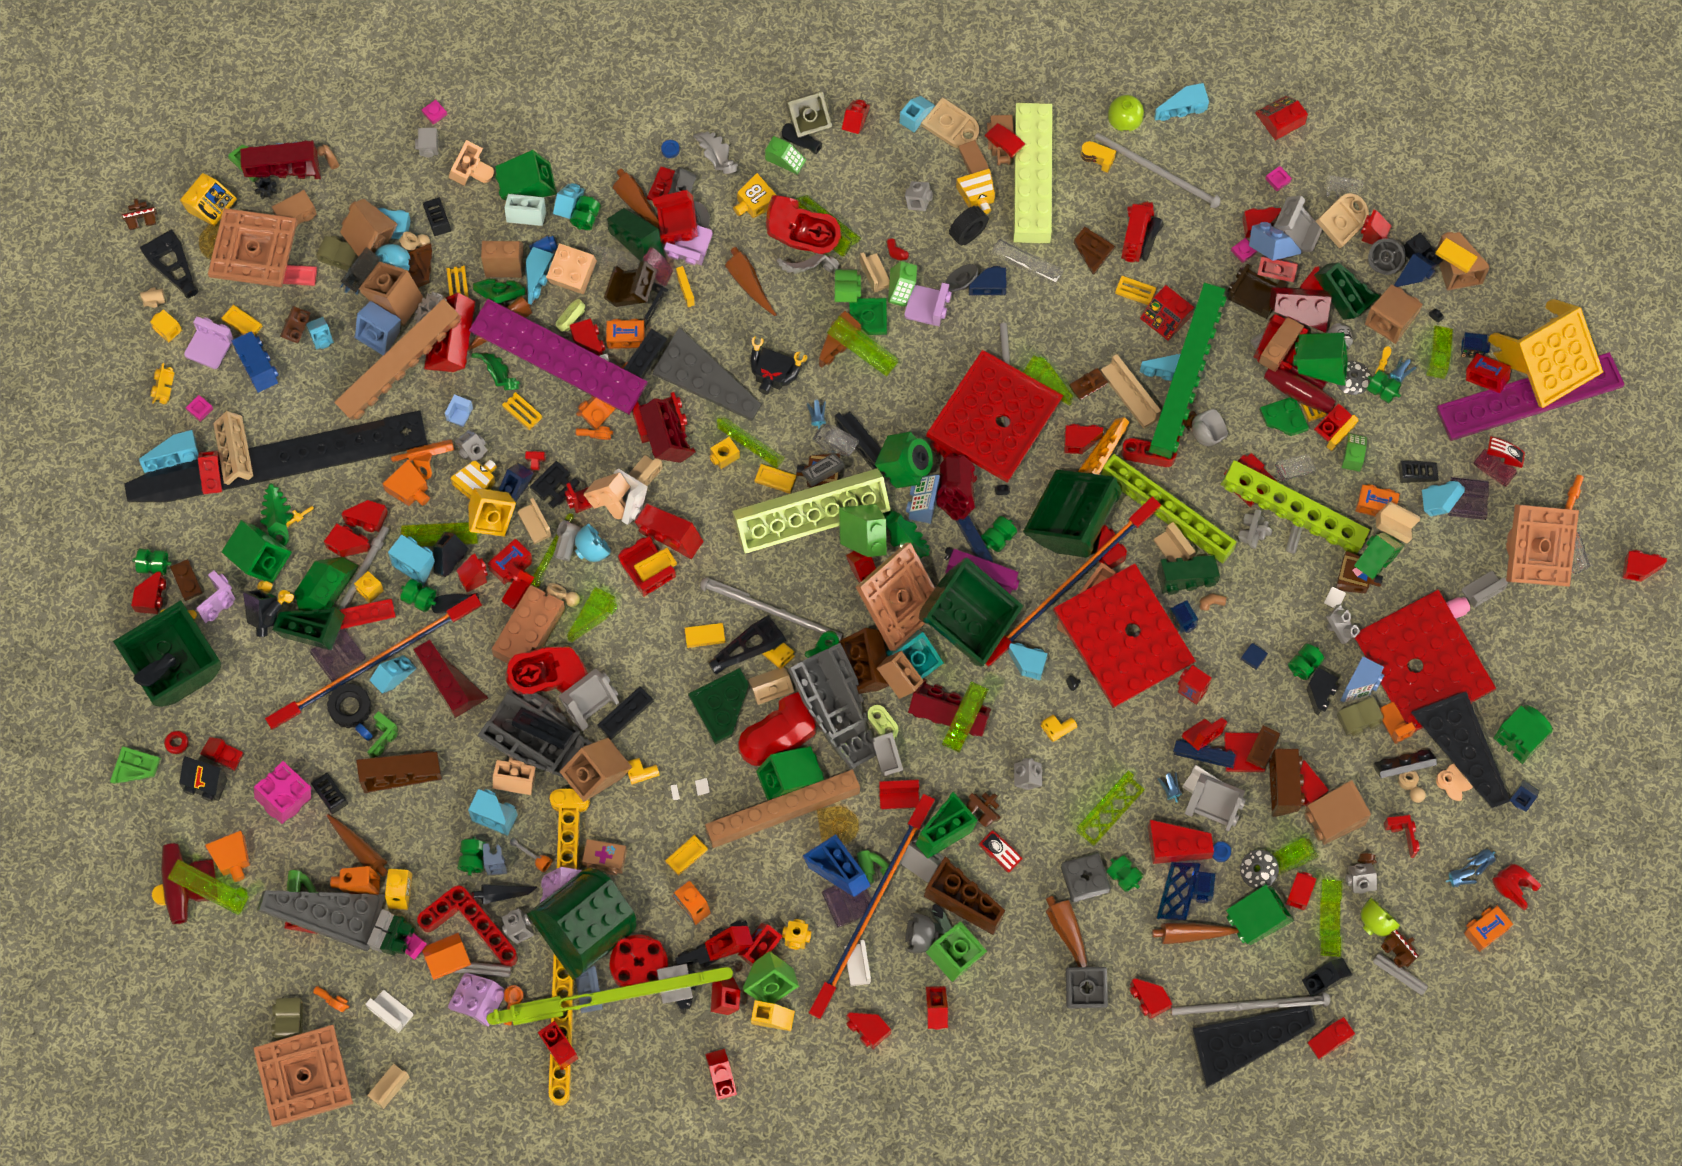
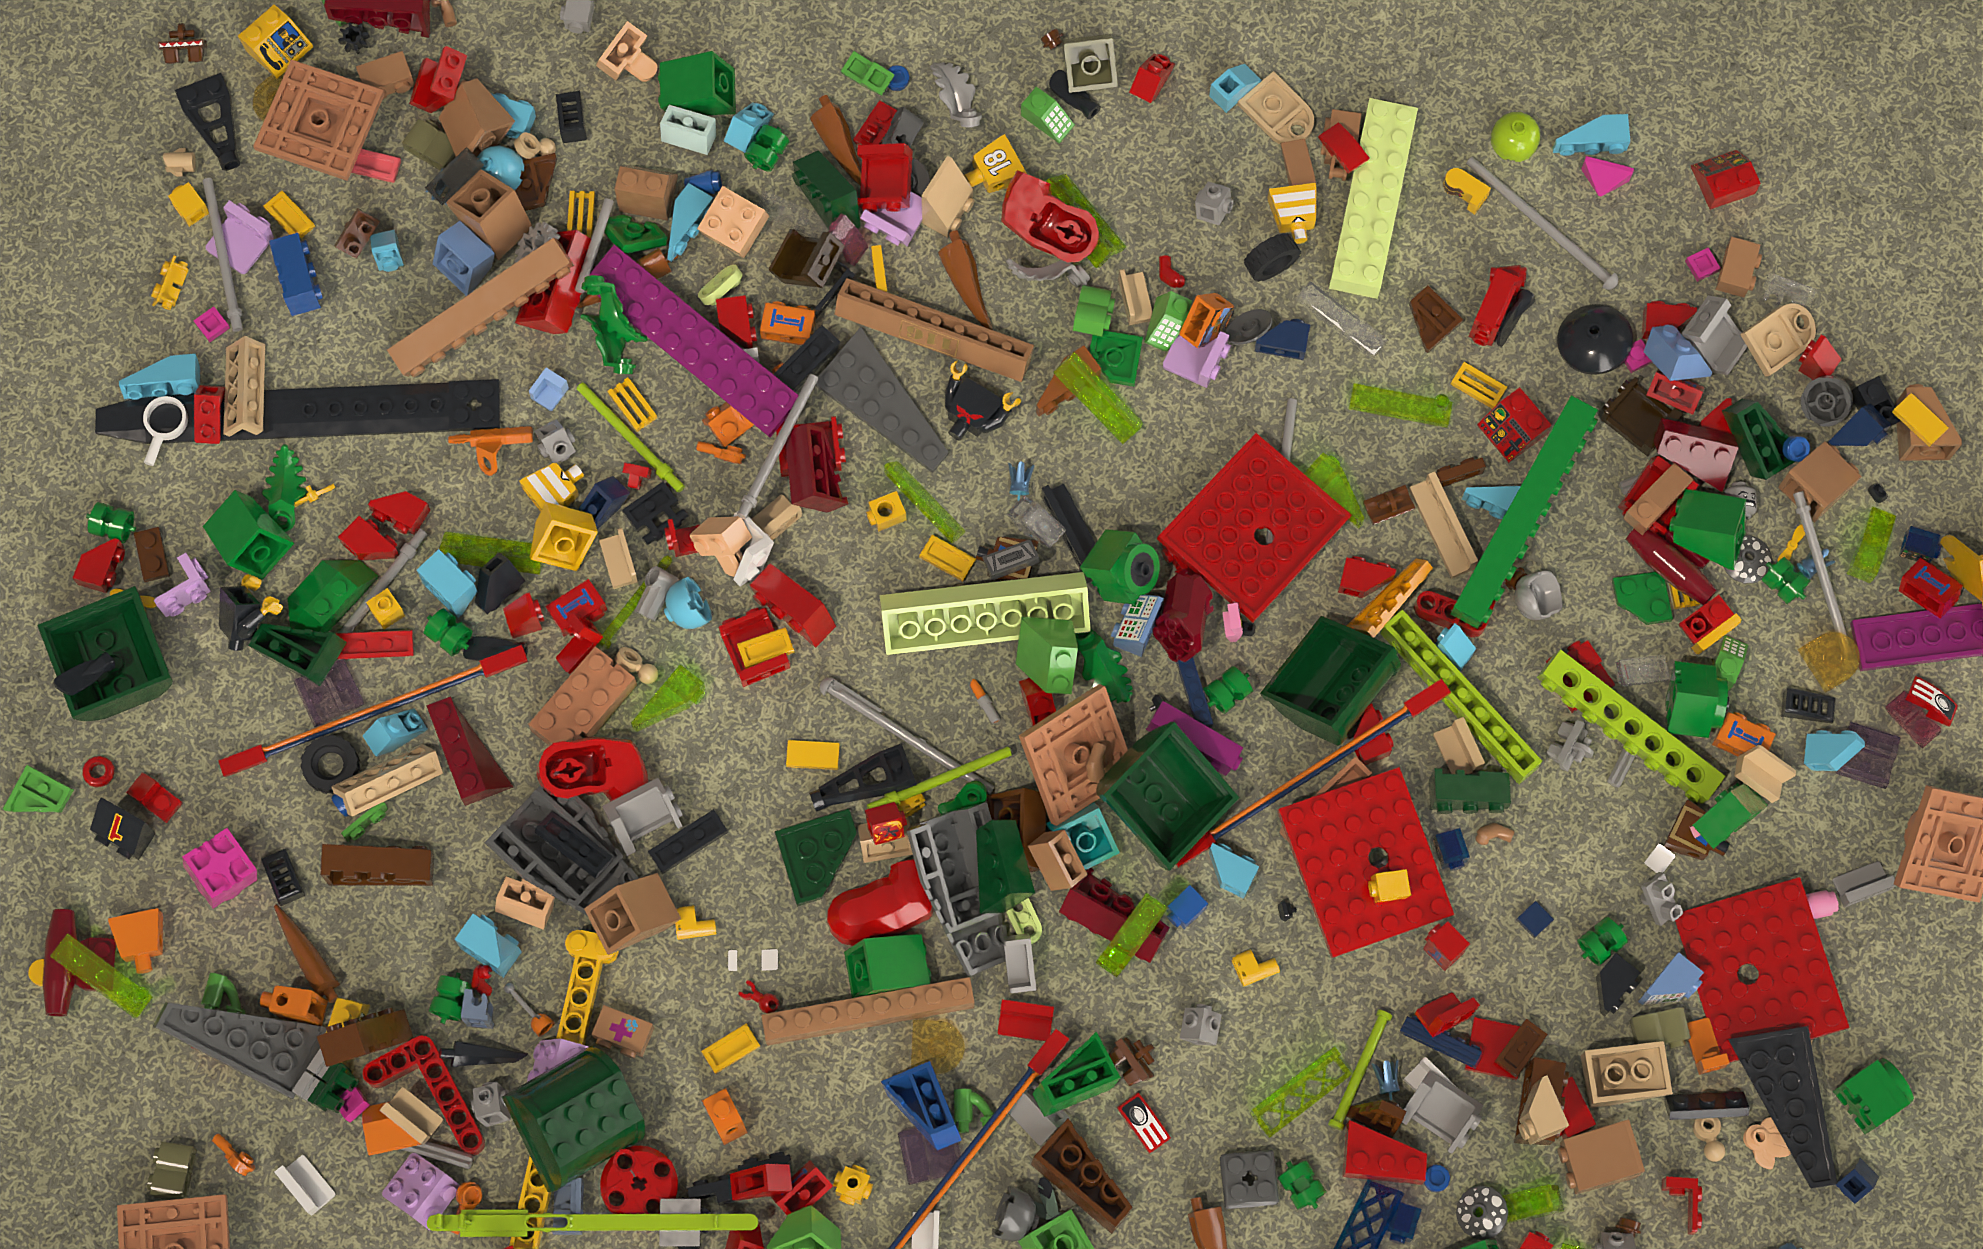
camera: 10 degrees right, 5 degrees up
(176, 494) = (159, 437): none -> white piece
(214, 396) = (233, 313): none -> light grey bar
(334, 208) = (438, 81): none -> red panel
(395, 707) = (388, 779): none -> tan fence
(407, 485) = (462, 479): orange torso -> none
(414, 891) = (364, 1036): none -> reddish brown wedge
(460, 944) = (412, 1115): none -> tan panel
(472, 302) = (594, 243): none -> light grey bar
(491, 833) = (478, 983): none -> red arm
(495, 344) = (611, 308): none -> green plant
(554, 453) = (663, 471): none -> lime bar
(624, 458) = (749, 500): none -> light grey bar
(648, 149) = (867, 73): none -> bright green slope
(705, 816) = (764, 1001): none -> red arm
(724, 225) = (946, 199): none -> tan slope
(733, 319) = (934, 329): none -> medium nougat brick
(768, 671) = (885, 823): none -> red brick
(772, 653) = (942, 778): none -> lime bar
(777, 102) = (1052, 39): none -> reddish brown plate
(823, 575) = (984, 702): none -> light grey piece
(860, 686) = (1001, 867): none -> dark green wedge
(914, 601) = (1095, 765): none -> medium nougat arm
(930, 276) = (1206, 319): none -> orange torso
(993, 485) = (1233, 622): none -> bright pink slope
(1000, 693) = (1186, 908): none -> blue brick
(1083, 313) = (1401, 405): none -> clear neon green piece
(1137, 351) = (1467, 469): none -> reddish brown plate
(1145, 647) = (1389, 886): none -> yellow brick
(1157, 472) = (1455, 646): none -> medium azure slope
(1159, 744) = (1337, 1121): none -> lime bar
(1171, 812) = (1379, 1116): none -> reddish brown wing
(1195, 128) = (1605, 175): none -> dark pink slope
(1212, 252) = (1599, 351): none -> black dish
(1289, 785) = (1542, 1113): none -> tan slope
(1304, 176) = (1738, 267): none -> medium nougat brick
(1337, 479) = (1695, 699): none -> green piece
(1342, 751) = (1626, 1074): none -> tan slope
(1372, 292) = (1796, 448): none -> blue tile
(1409, 376) = (1803, 511): none -> light grey bar
(1428, 435) = (1831, 659): none -> clear yellow tile

